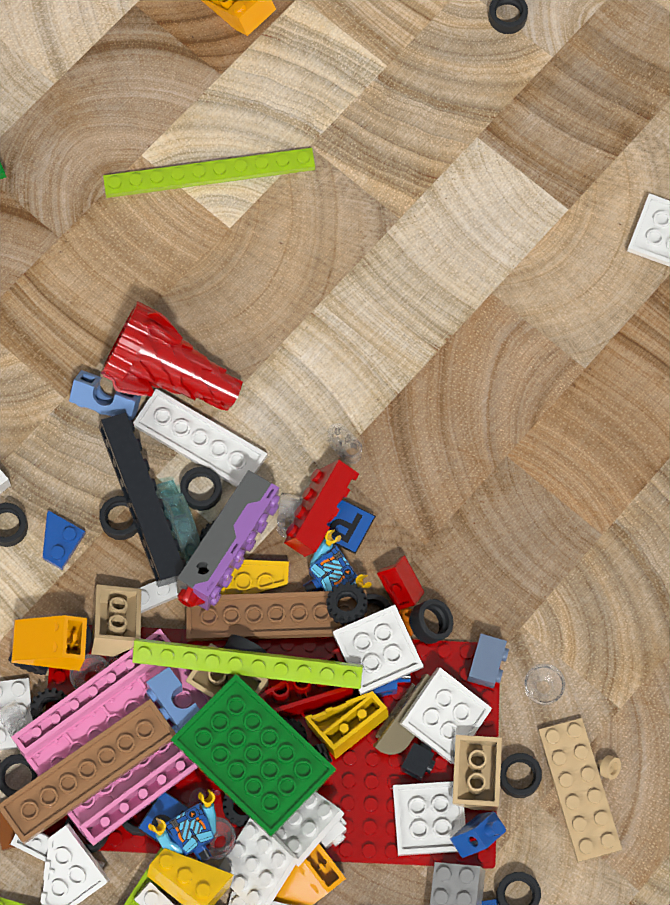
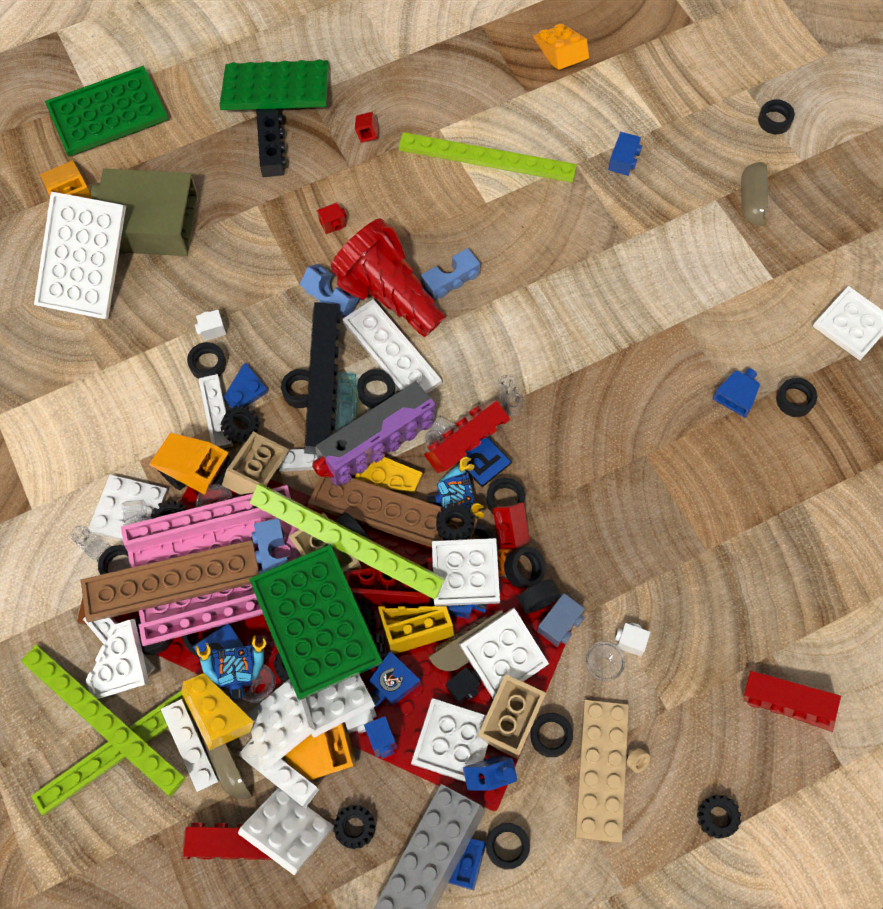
camera: 25 degrees right, 5 degrees down
(41, 576) = (214, 409): none -> white plate
(58, 181) = (366, 127): none -> red brick
(69, 309) = (332, 218): none -> red brick
(80, 571) = (239, 414): none -> black tyre
(219, 345) = (439, 284): none -> medium blue arch
(348, 783) = (392, 681): none -> blue torso
(360, 117) = (624, 153): none -> blue brick
(361, 842) = (381, 737): none -> blue brick
(374, 541) = (504, 483): none -> black tyre
(458, 645) = (539, 596): none -> black tyre
(516, 115) = (754, 193): none -> dark tan brick
(562, 652) = (632, 638): none -> white brick
(577, 353) = (738, 392): none -> blue torso
(643, 323) = (802, 385): none -> black tyre

